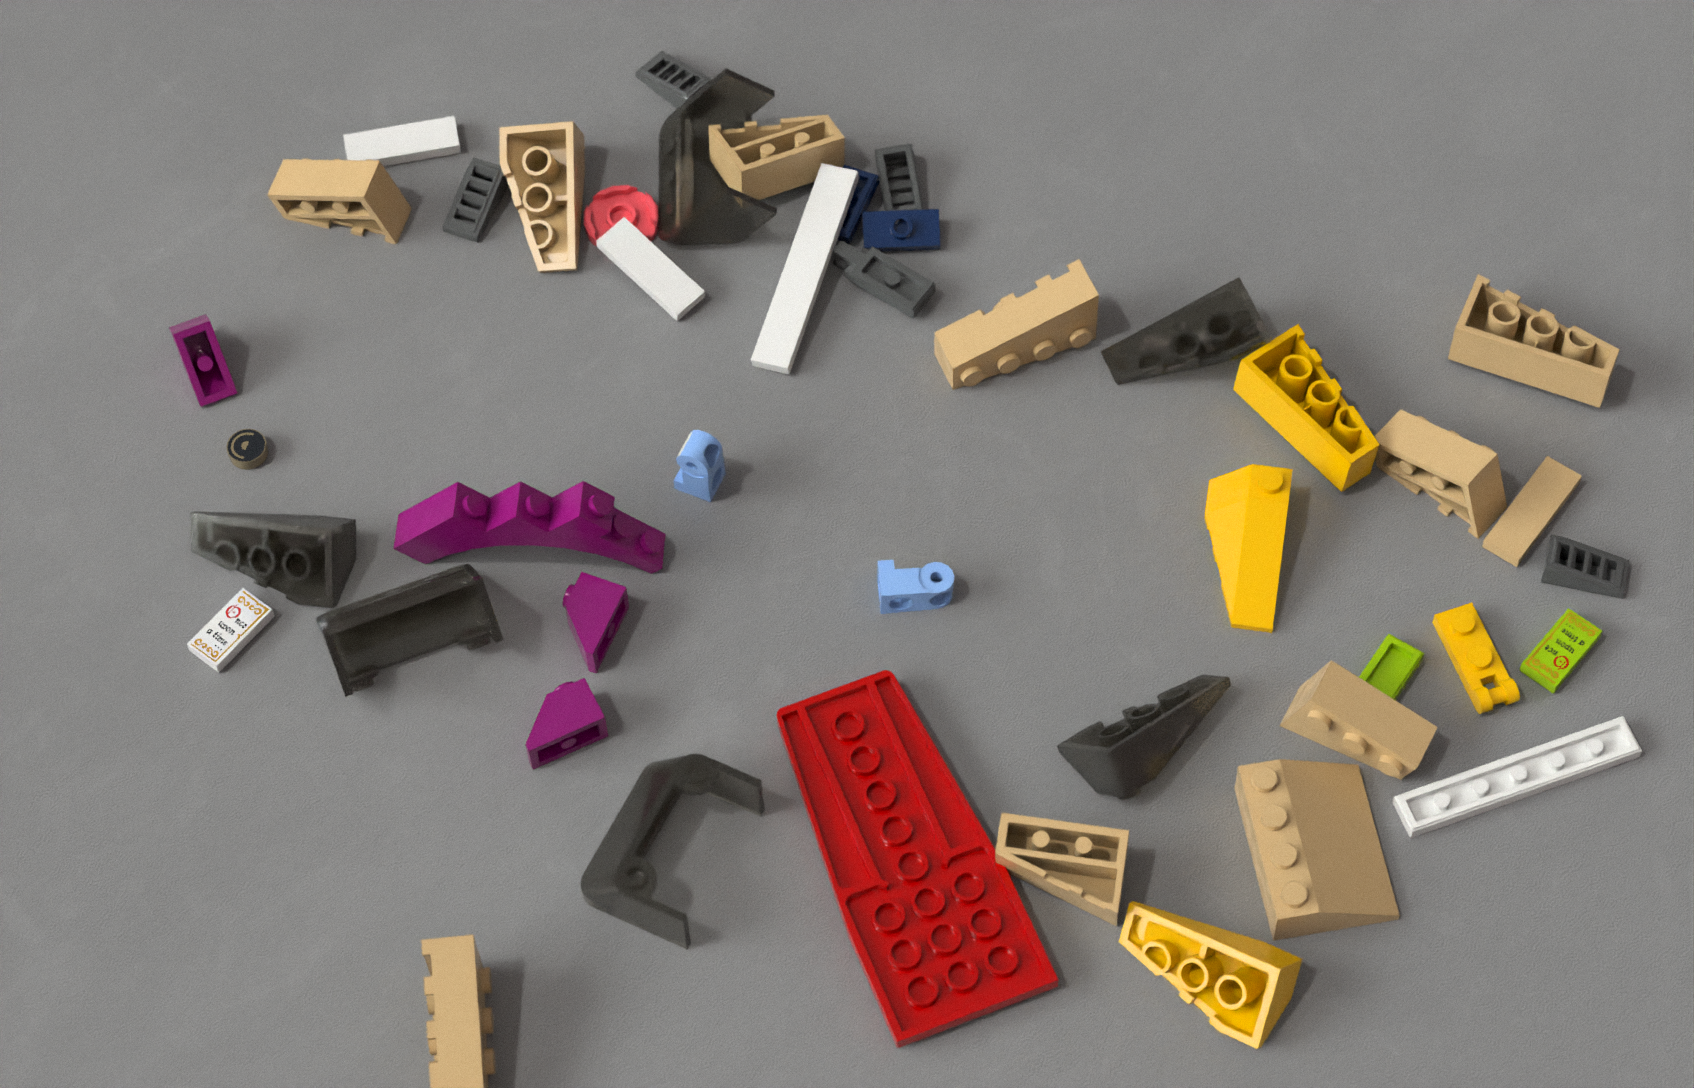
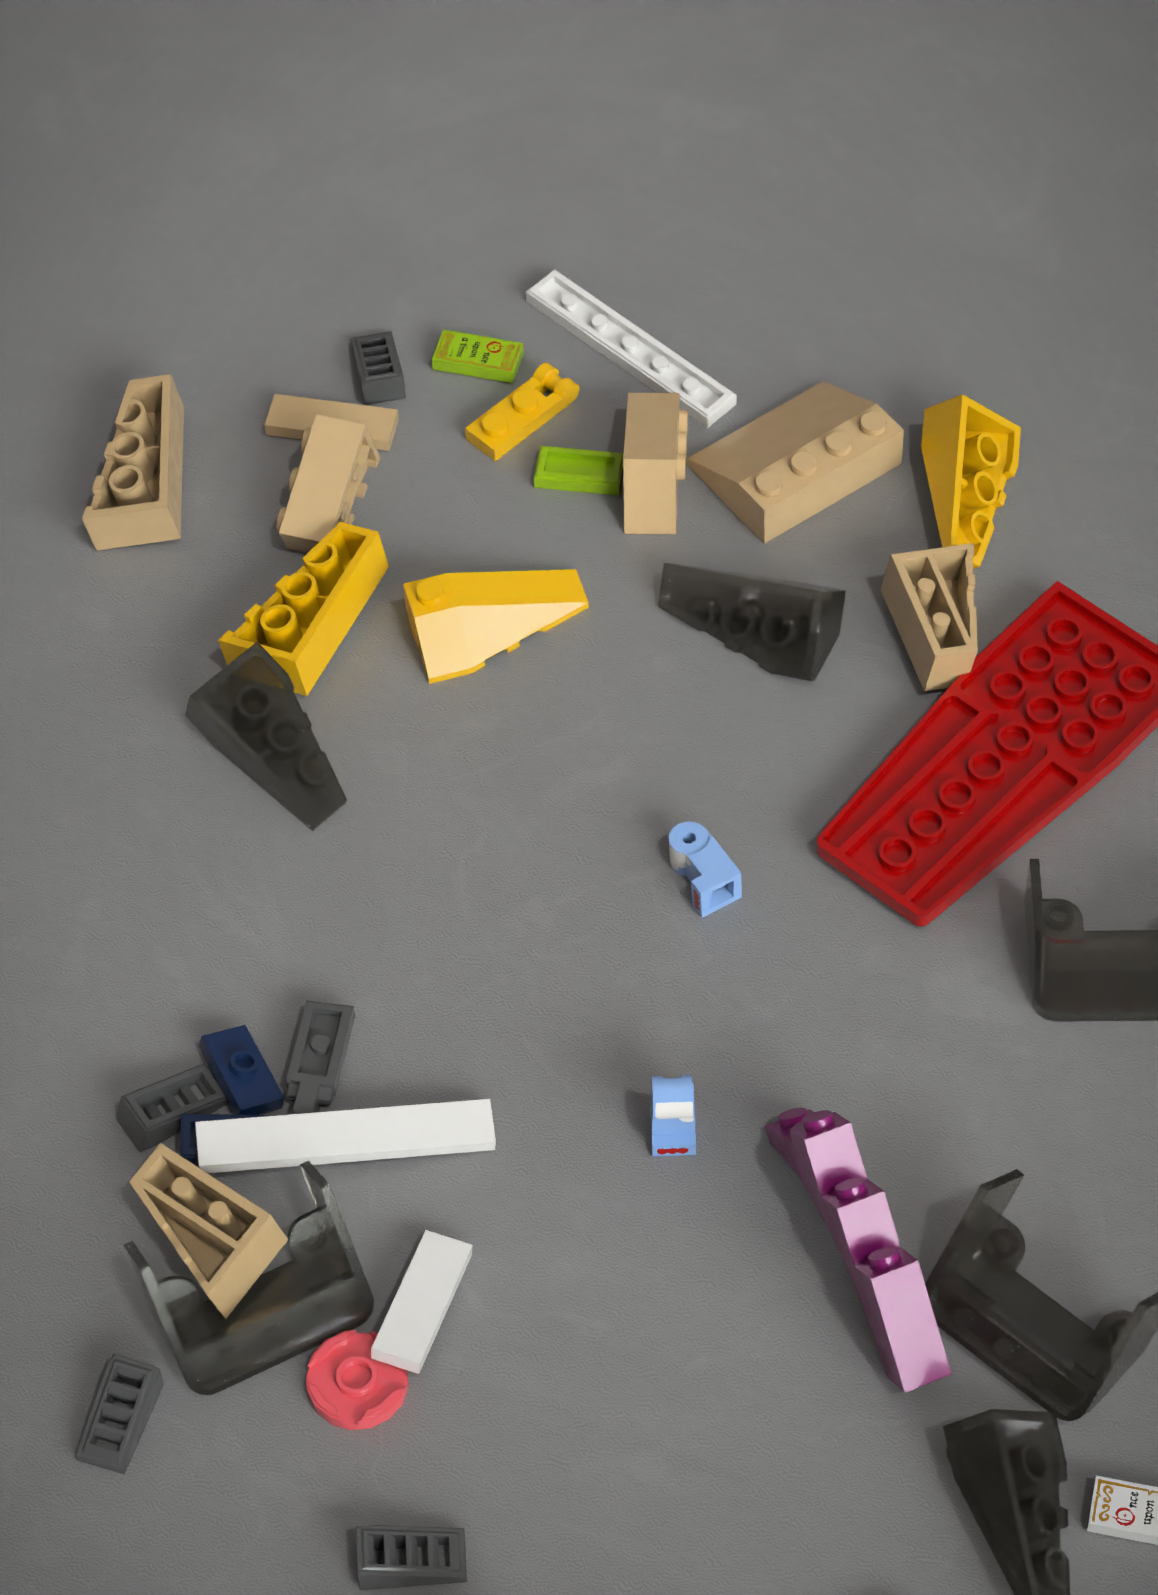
camera: 115 degrees left, 5 degrees down
(547, 186) = (355, 1469): tan wedge -> none
(565, 723) = (1053, 1103): magenta slope -> none
(594, 615) = (914, 1135): magenta slope -> none
(1020, 329) = (333, 889): tan wedge -> none

